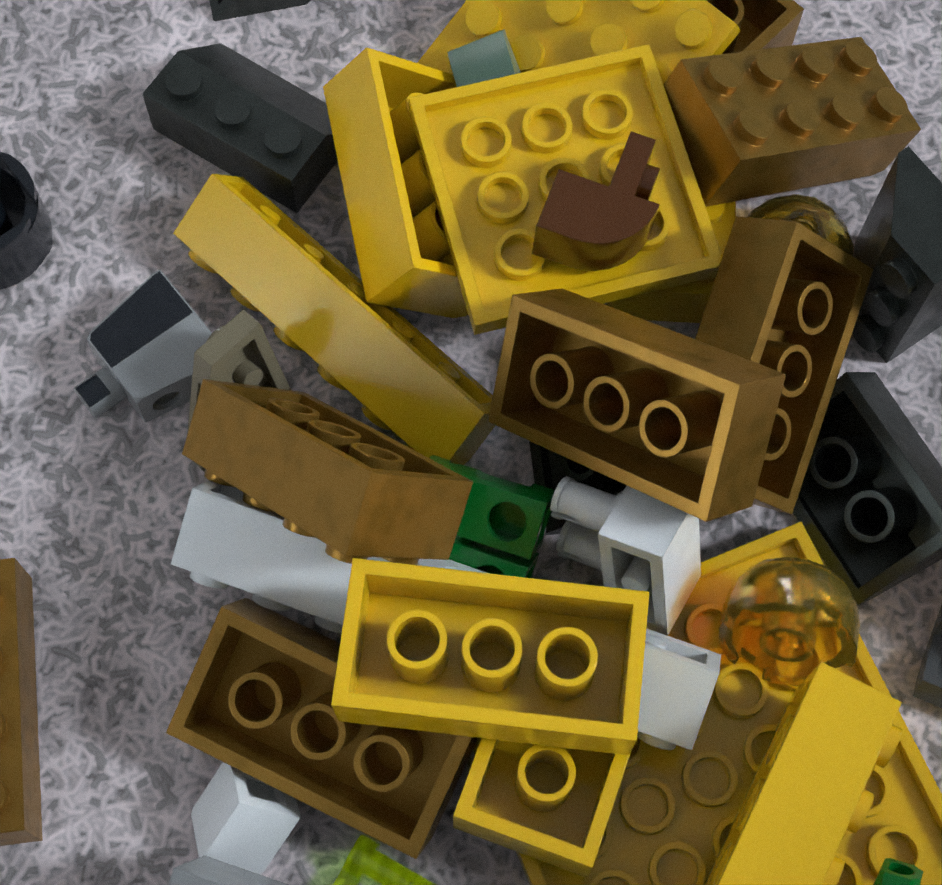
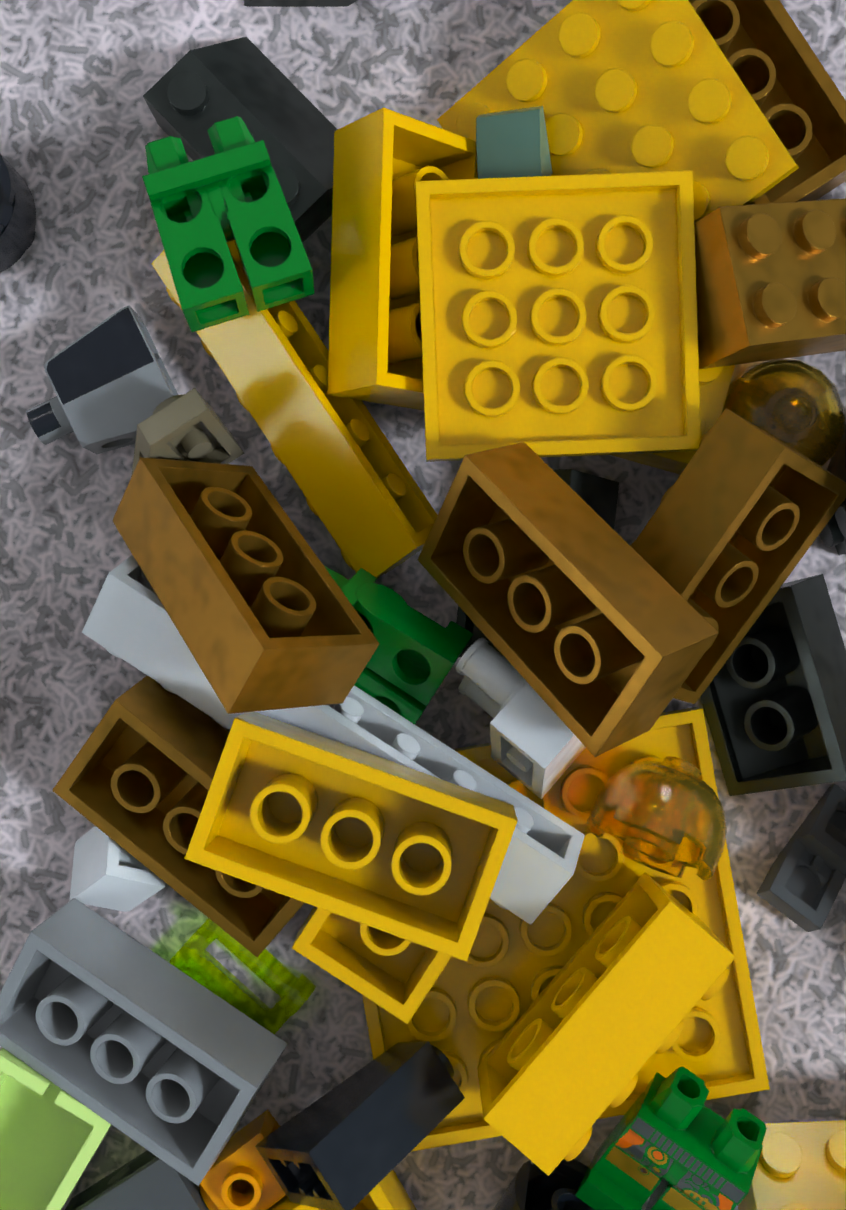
camera: 20 degrees right, 20 degrees up
(247, 172) = (221, 201): none -> green hips
(600, 224) = (581, 387): reddish brown brick -> none

